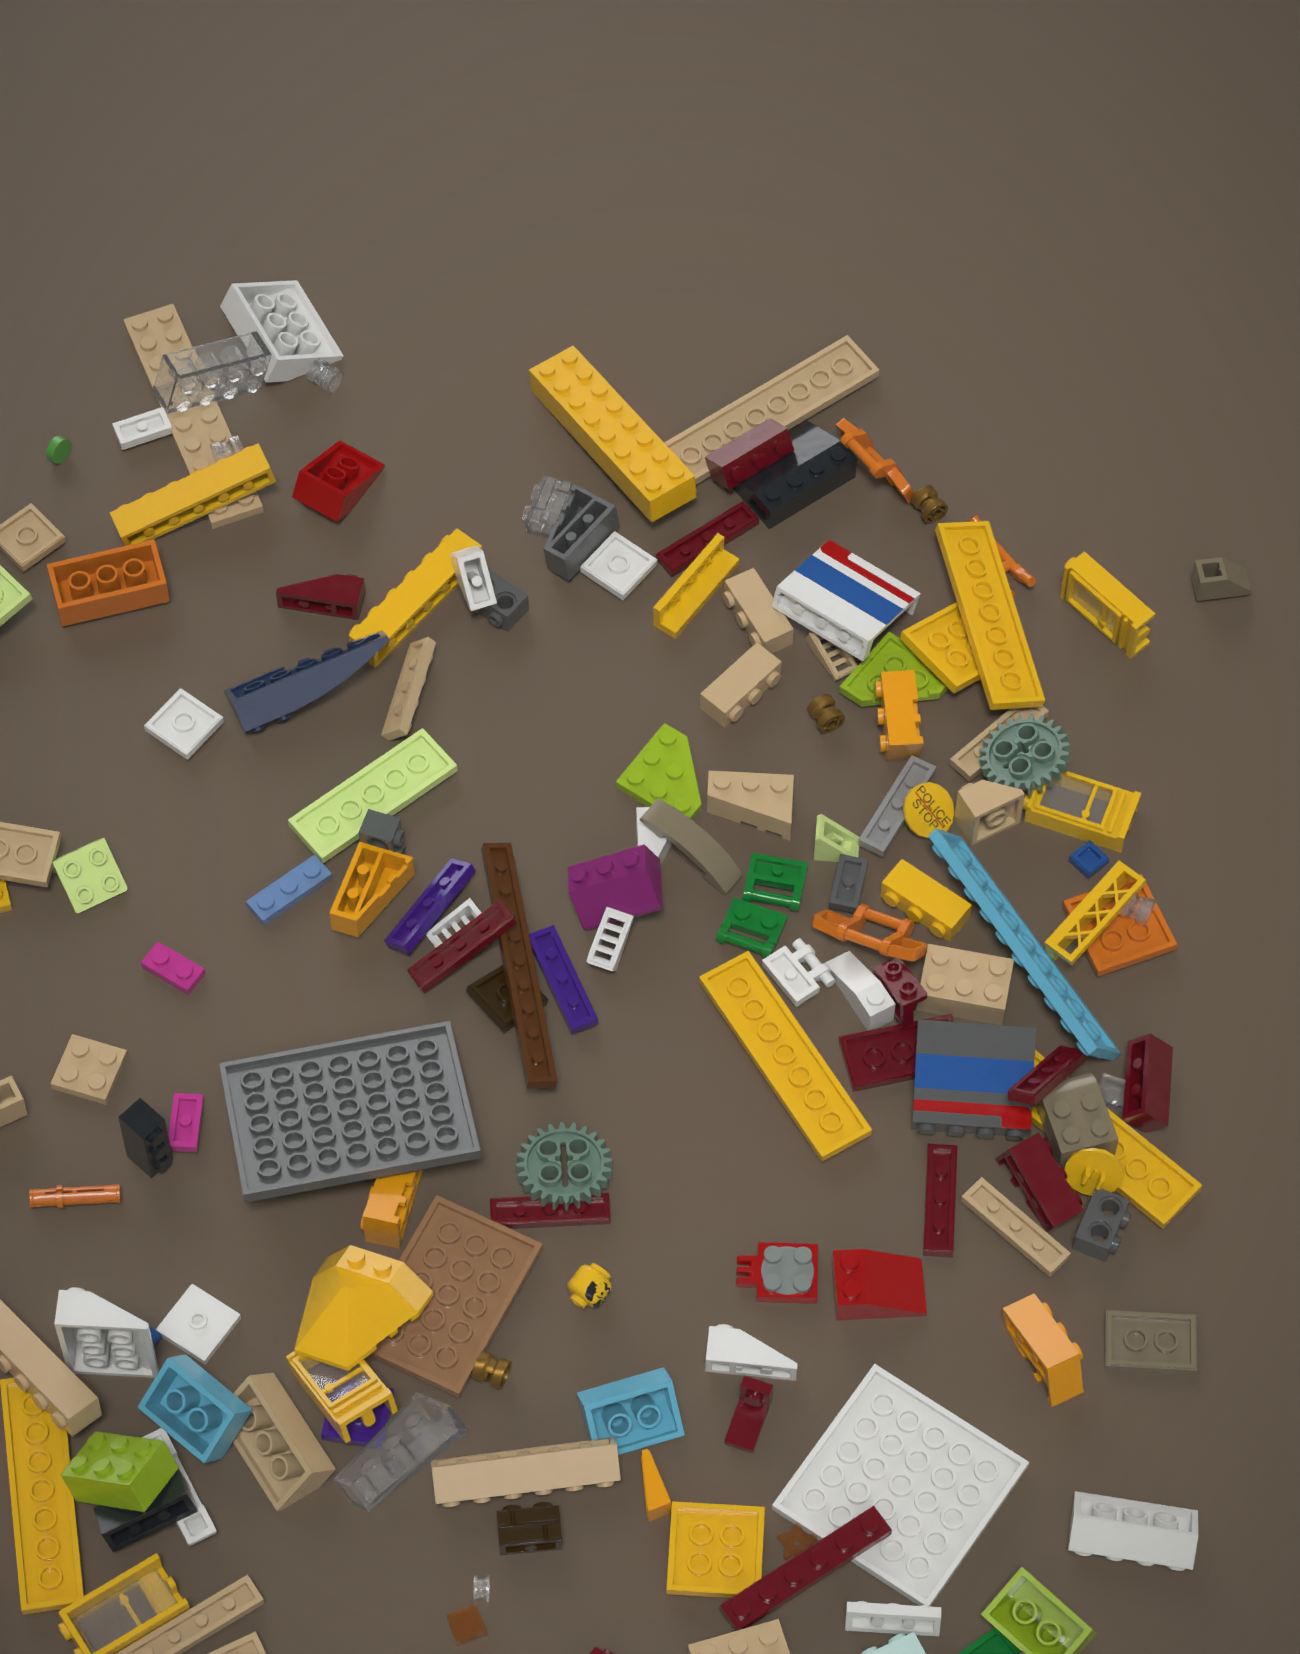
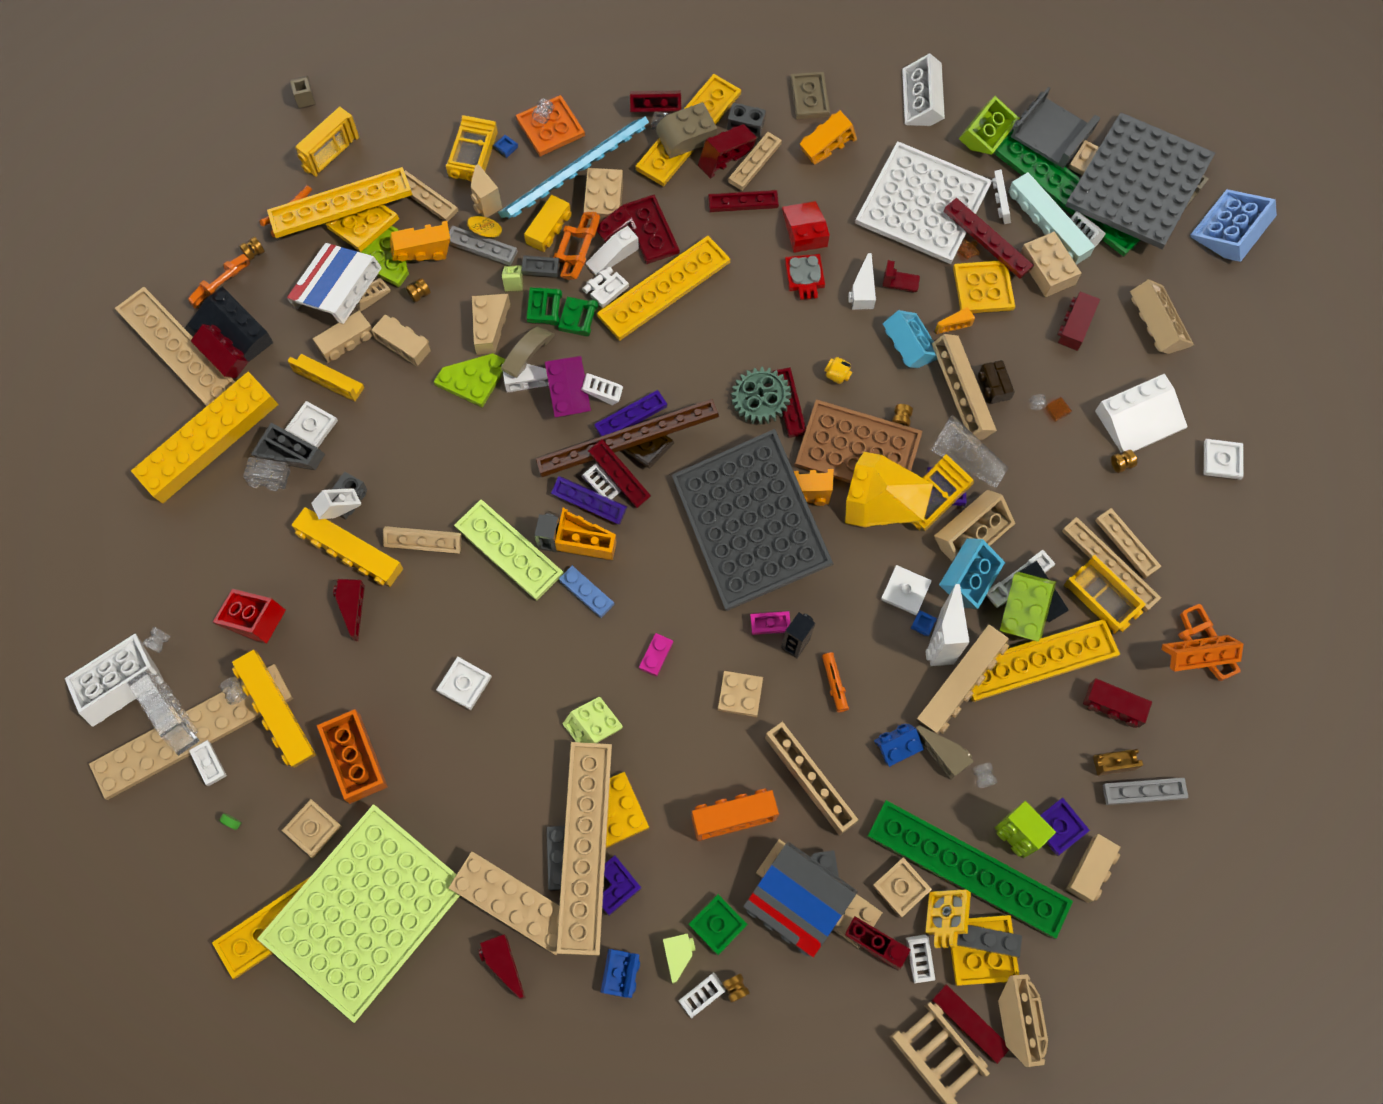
camera: 100 degrees left, 10 degrees up
(284, 691) = (430, 613): dark blue wedge -> none
(684, 551) = (284, 376): dark red tile -> none
(966, 1079) = (667, 182): panel -> none
(1025, 754) = (431, 183): sand green gear -> none
(1046, 1075) = (666, 141): dark red tile -> none
(1091, 908) = (551, 135): yellow fence -> none
(1094, 1169) = (720, 117): yellow piece -> none

